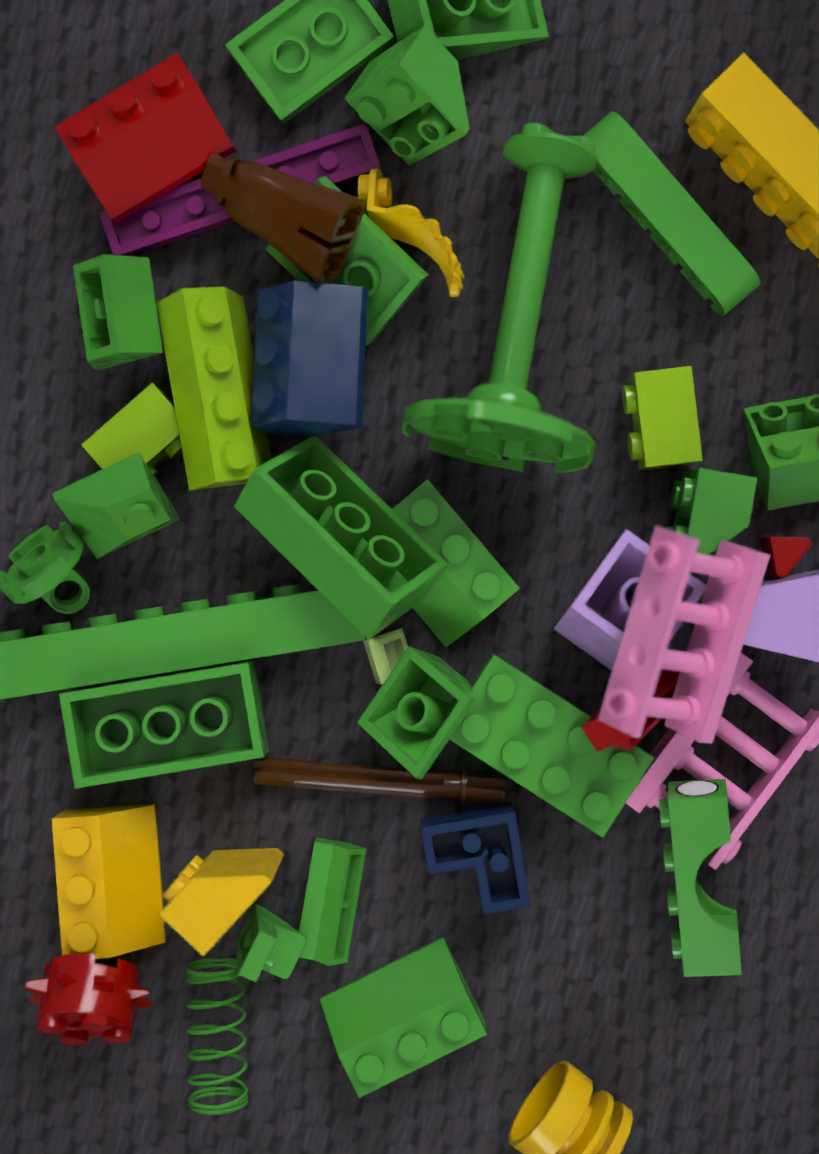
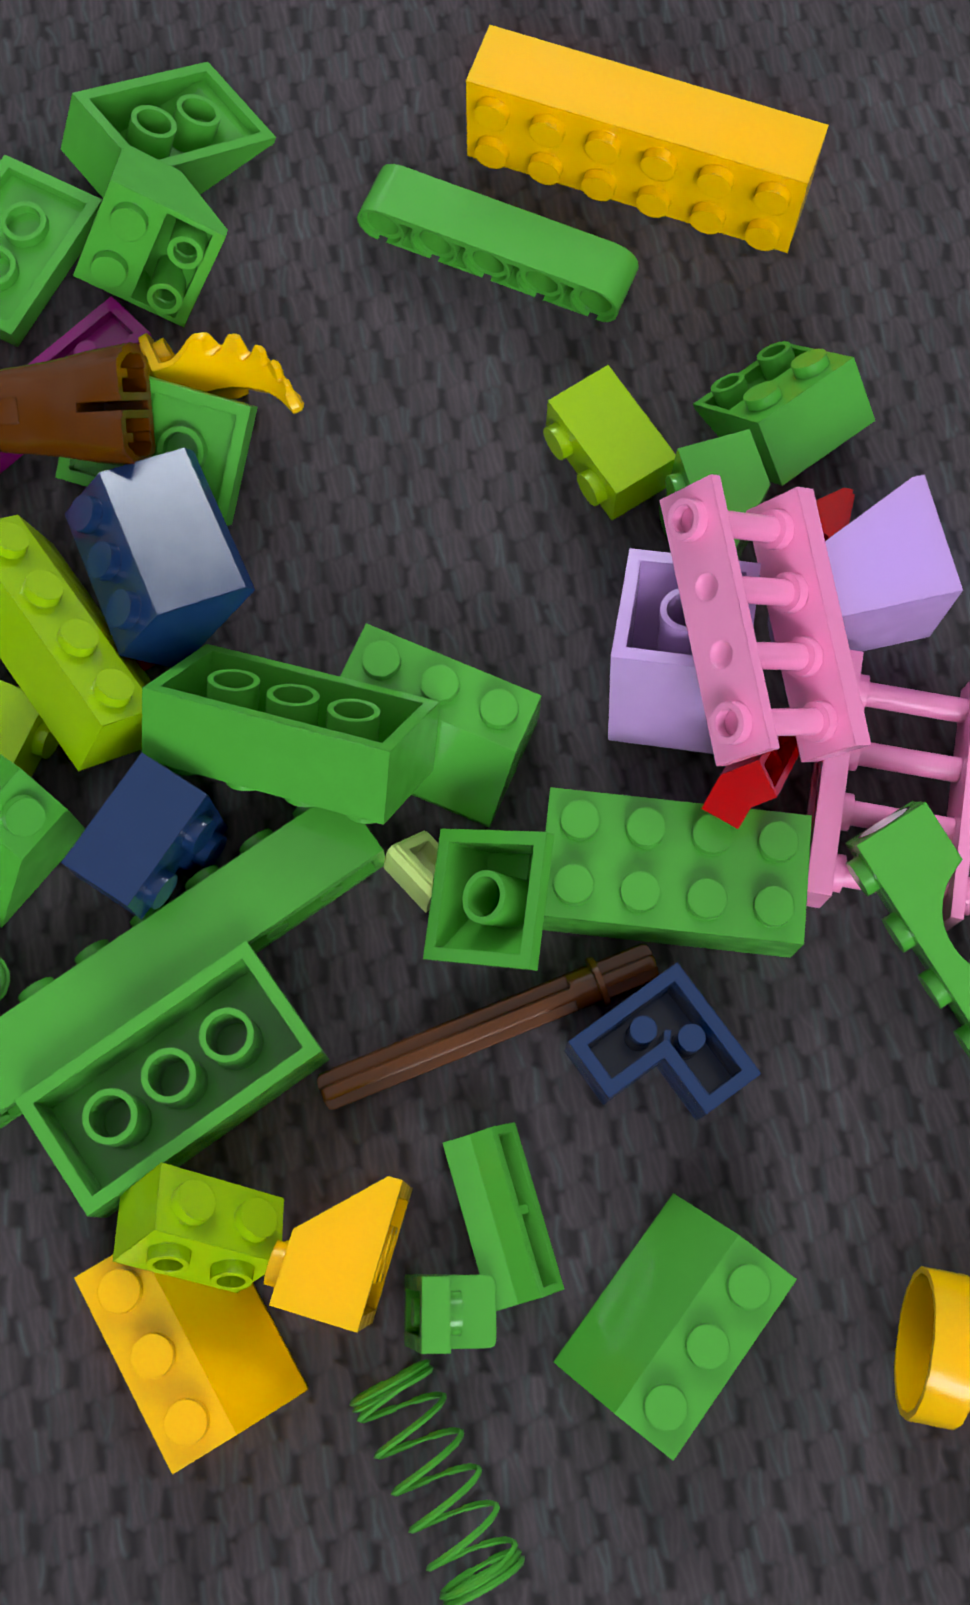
camera: 25 degrees left, 15 degrees down
(87, 999) = (231, 1513): red brick -> none
(140, 828) = (197, 1228): none -> lime brick
(211, 561) = (146, 835): none -> dark blue brick
(501, 414) = (417, 502): bright green piece -> none

